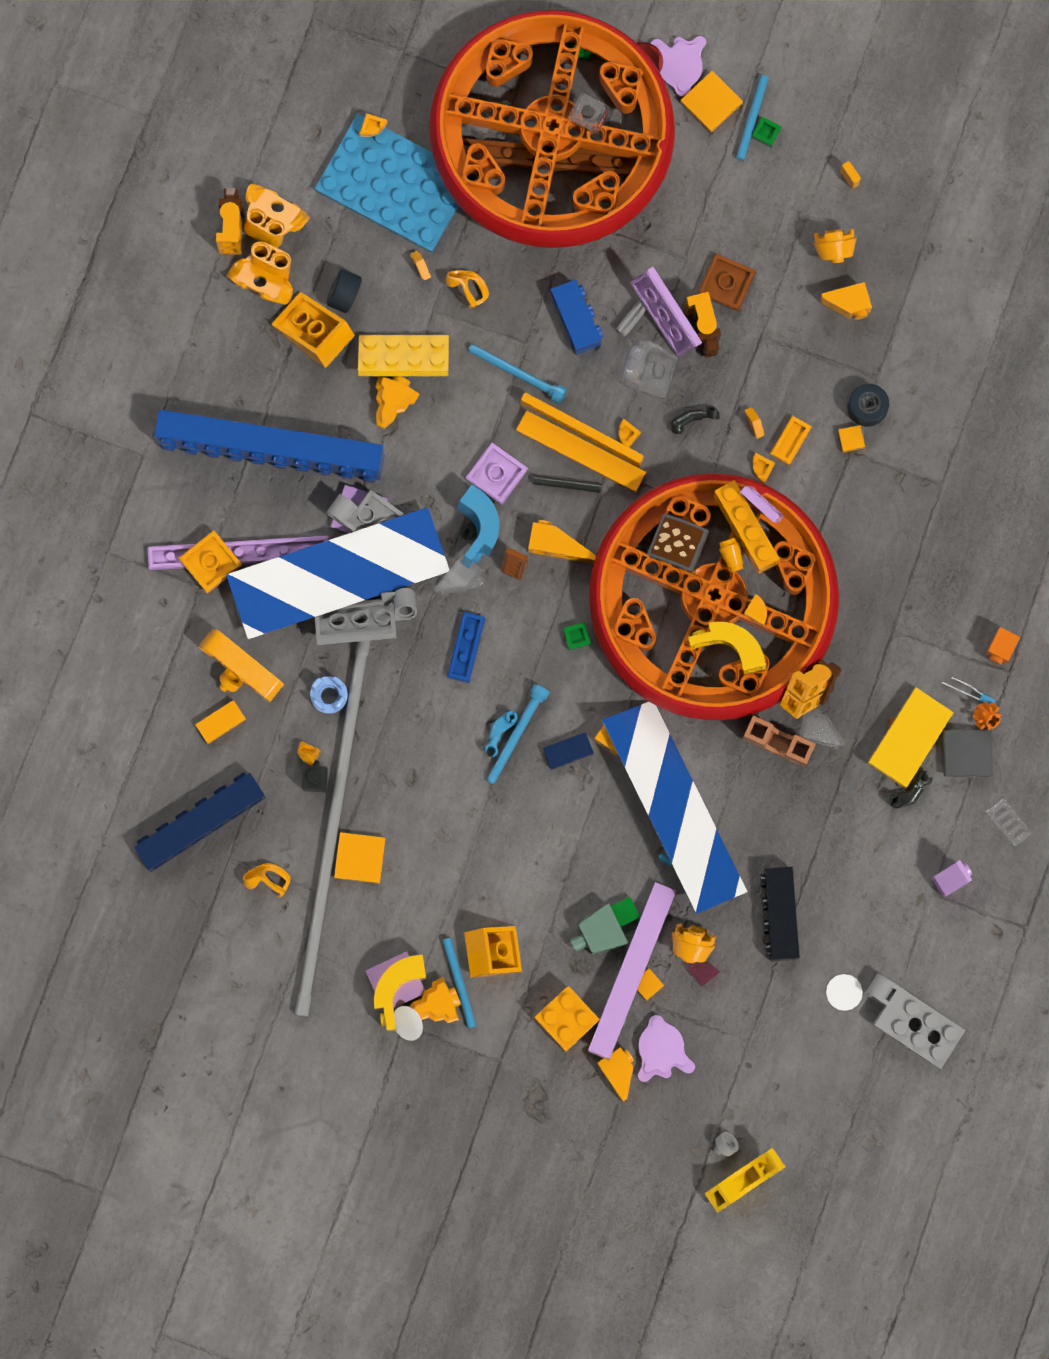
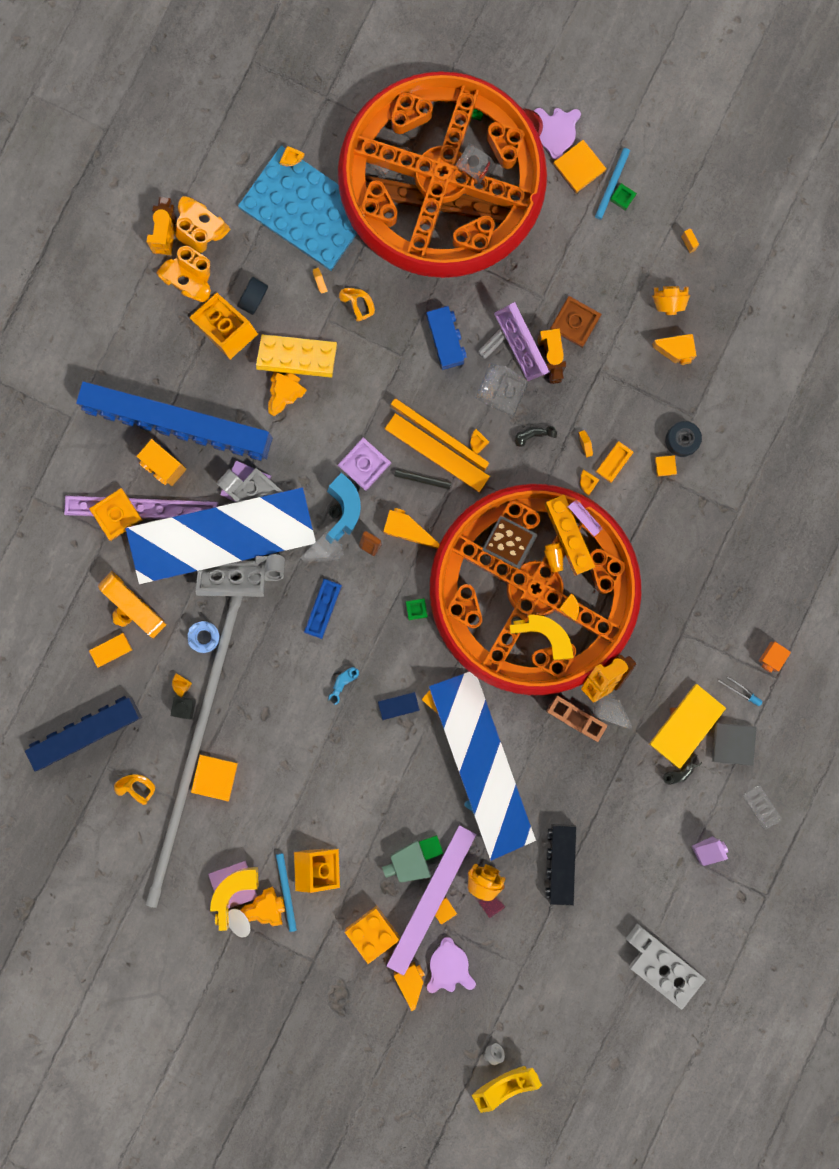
camera: 10 degrees right, 5 degrees up
(258, 495) = (165, 466): none -> light orange brick
(537, 696) = (378, 656): dark azure piece -> none
(555, 392) = (421, 400): dark azure piece -> none
(844, 992) = (607, 934): white sticker -> none
(986, 715) = (754, 714): orange gear -> none

